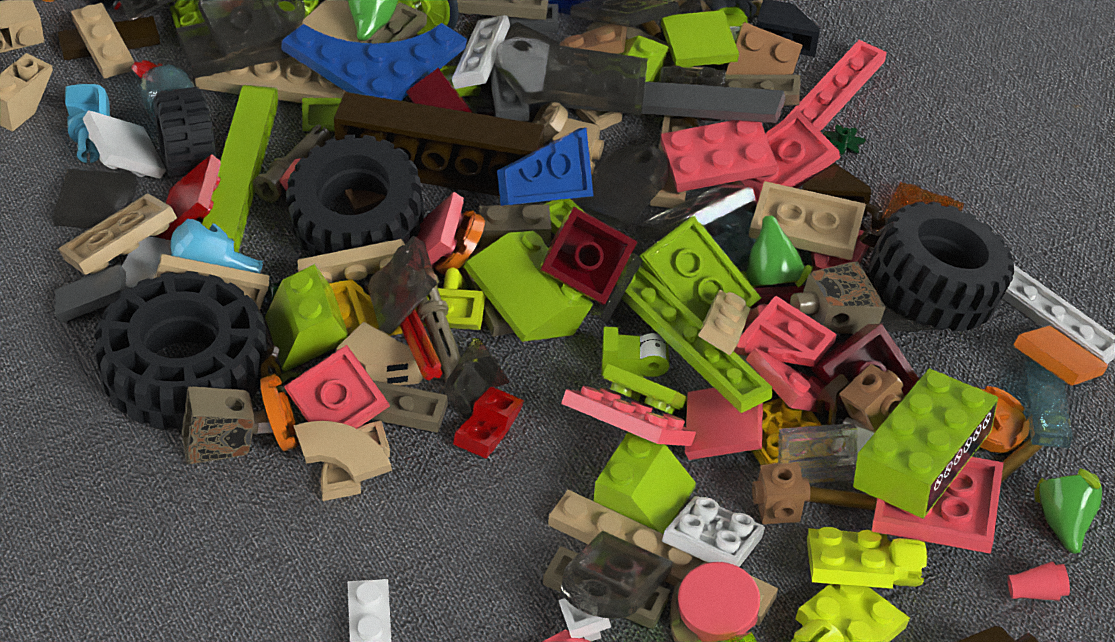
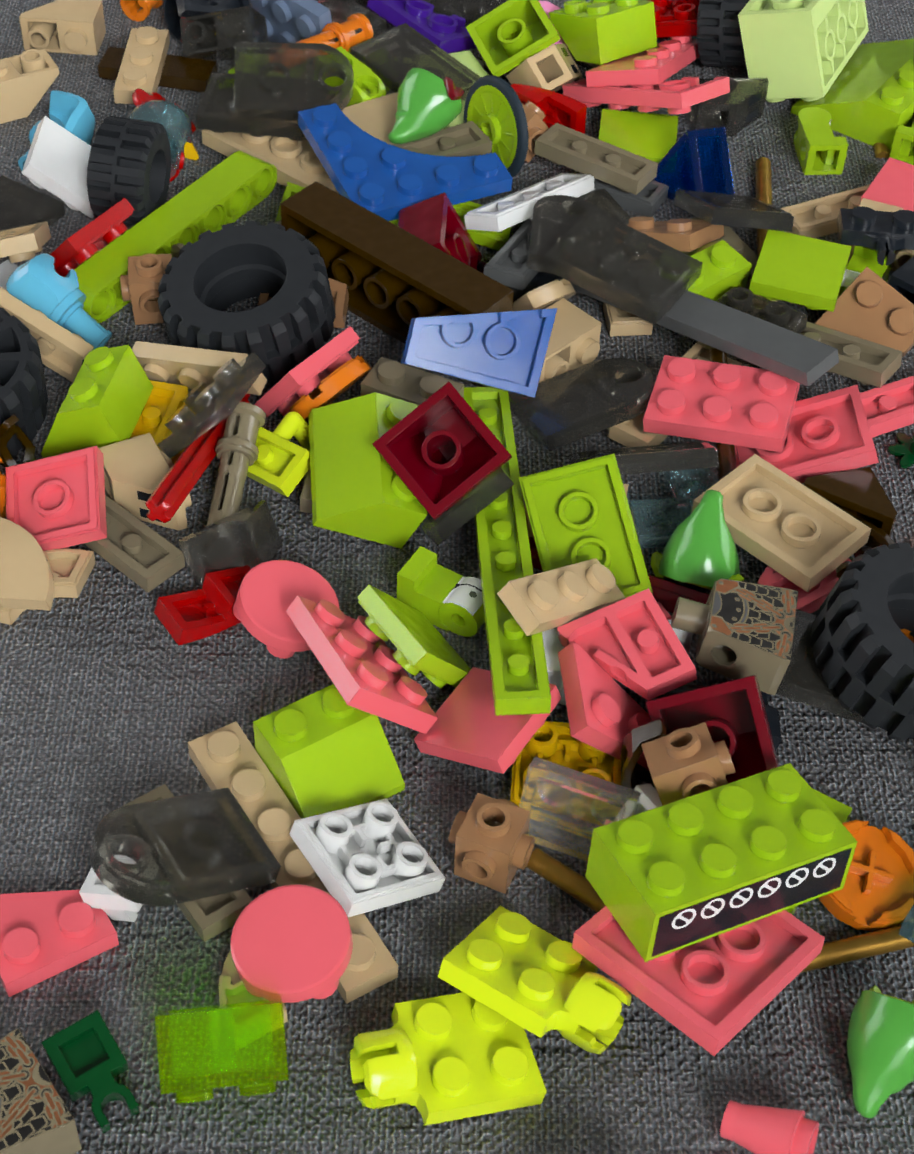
camera: 30 degrees right, 0 degrees up
(266, 216) = (142, 286): none -> medium nougat brick
(537, 401) = (267, 595): none -> coral tile

